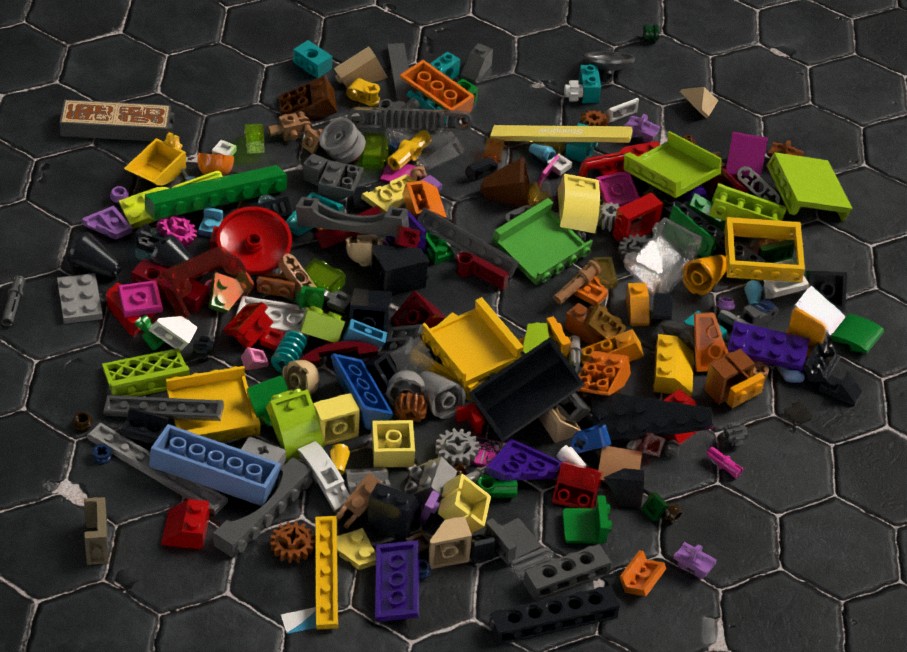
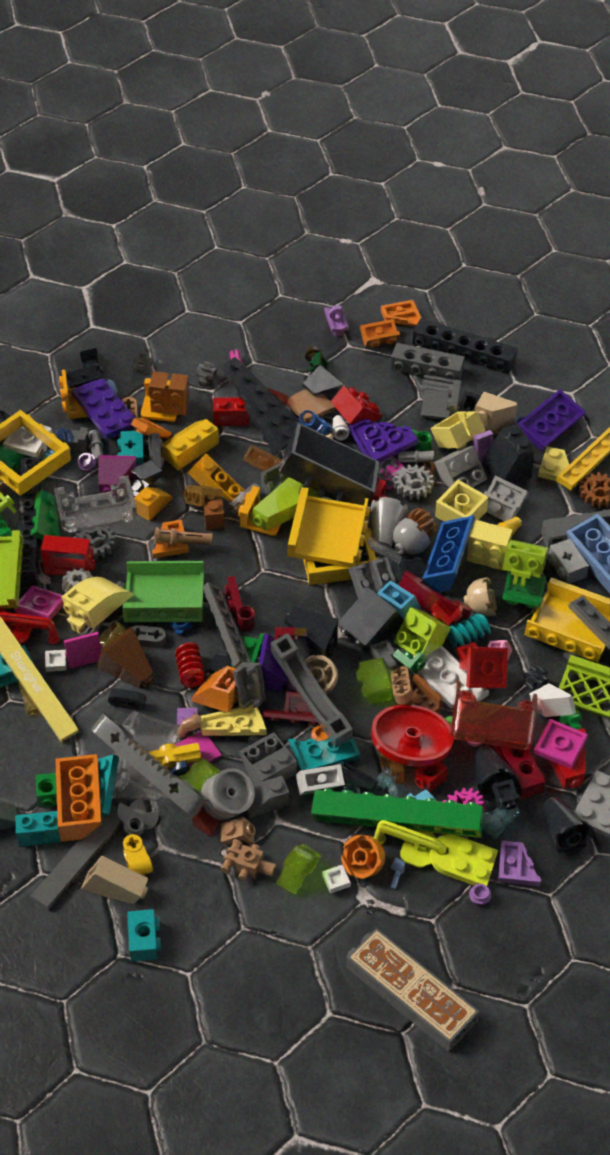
camera: 135 degrees left, 5 degrees up
(159, 161) = (421, 896): yellow piece -> none
(294, 185) = (319, 778): none -> white slope
(313, 99) = (202, 883): reddish brown slope -> none
(315, 338) = (442, 613): none -> red bracket
(325, 474) = (533, 517): white slope -> none
(359, 499) = (529, 482): medium nougat hinge -> none
(410, 201) = (249, 684): none -> dark grey hinge
(417, 311) = (335, 590): dark red slope -> none
(465, 210) = (189, 665): none -> red piece
(494, 149) = (93, 710): clear orange bracket -> none
(542, 152) = (54, 679): medium azure cone -> none
(588, 525) = (377, 382): green bracket -> none
(604, 373) = (255, 455): orange slope -> none
(607, 276) = (138, 547): clear yellow tile -> none
(648, 615) = (402, 313): none -> orange wing
(687, 298) = (112, 468): none -> magenta slope
(703, 273) = (74, 480): light orange cone -> none
(820, 308) = (33, 407): clear piece -> none
(858, 333) = (23, 386): green slope -> none

